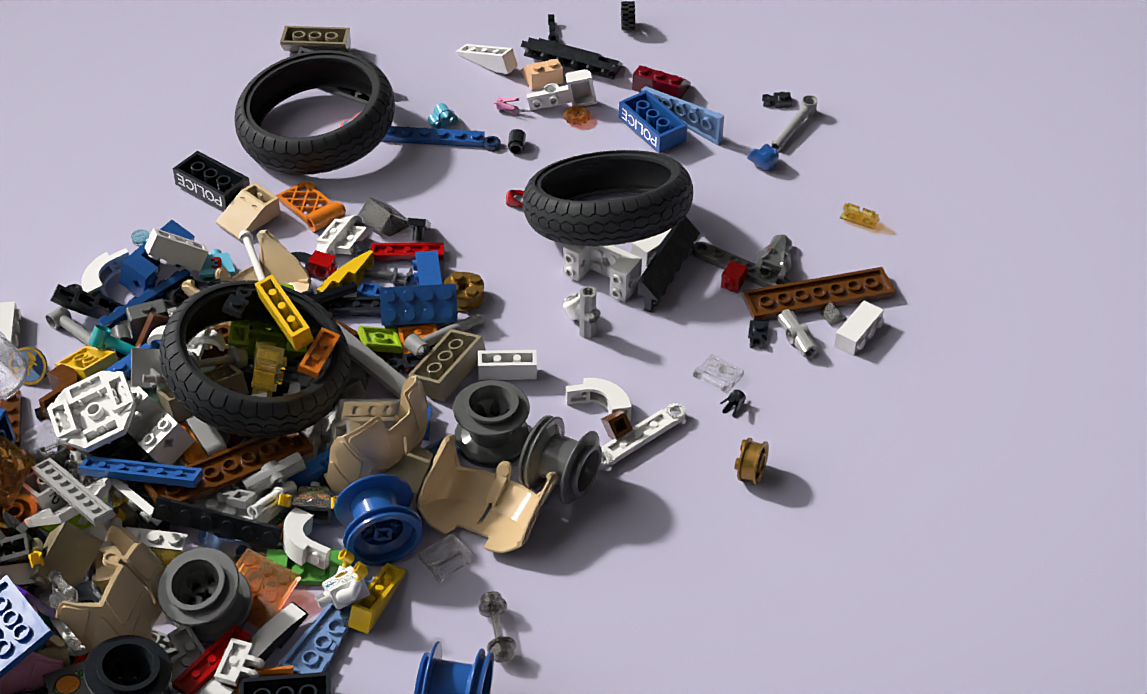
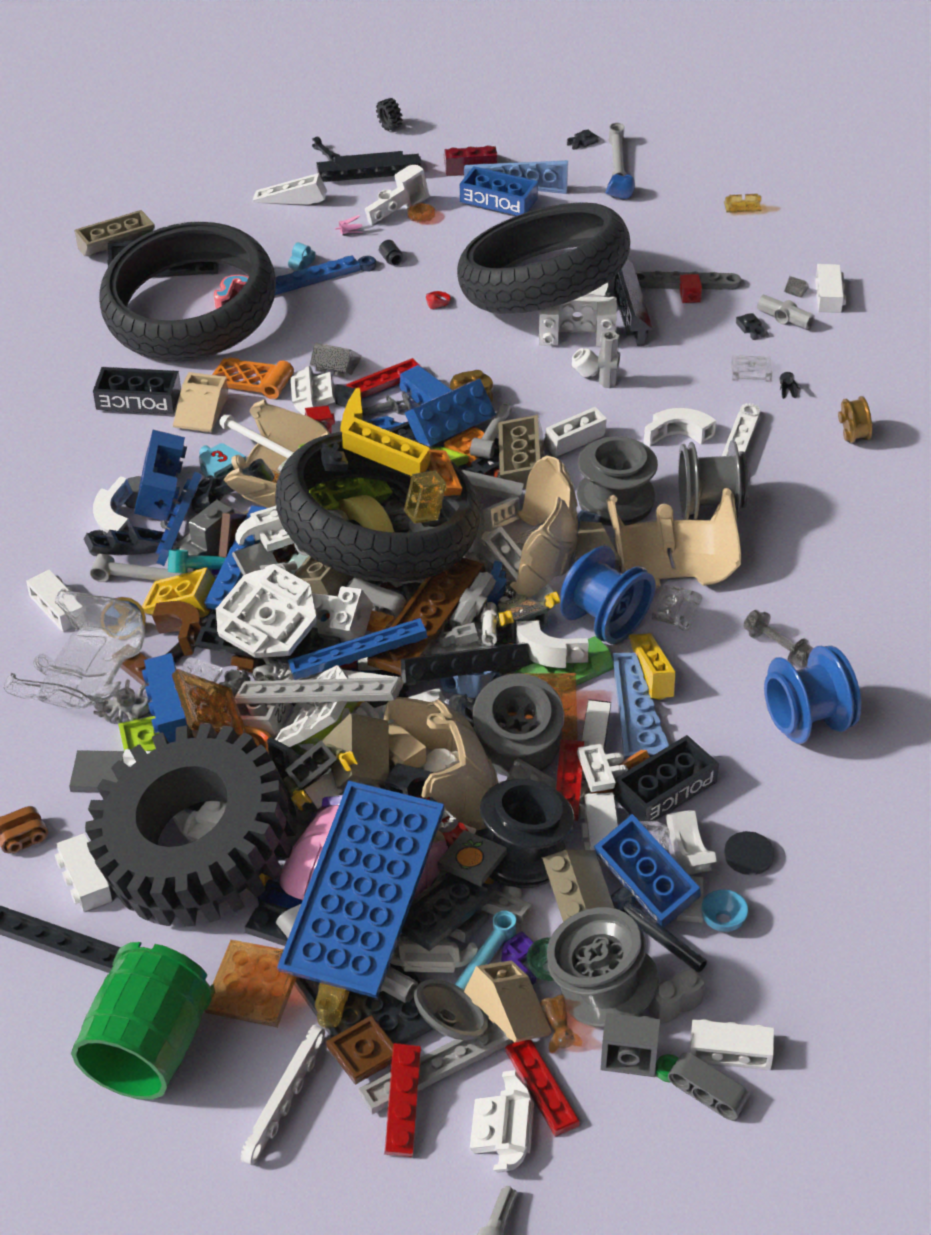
camera: 30 degrees left, 0 degrees up
(61, 590) = (408, 775): clear plate -> none
(140, 237) = (109, 468): clear light blue tile -> none
(176, 250) = (182, 455): white brick -> none
(346, 585) = (630, 661): white torso -> none
(418, 226) = (378, 352): black tile -> none
(543, 73) = (357, 189): light nougat slope -> none
(616, 424) = (716, 439): reddish brown brick -> none
(776, 256) = (707, 258): dark grey animal -> none
(818, 292) = (769, 275): reddish brown plate -> none

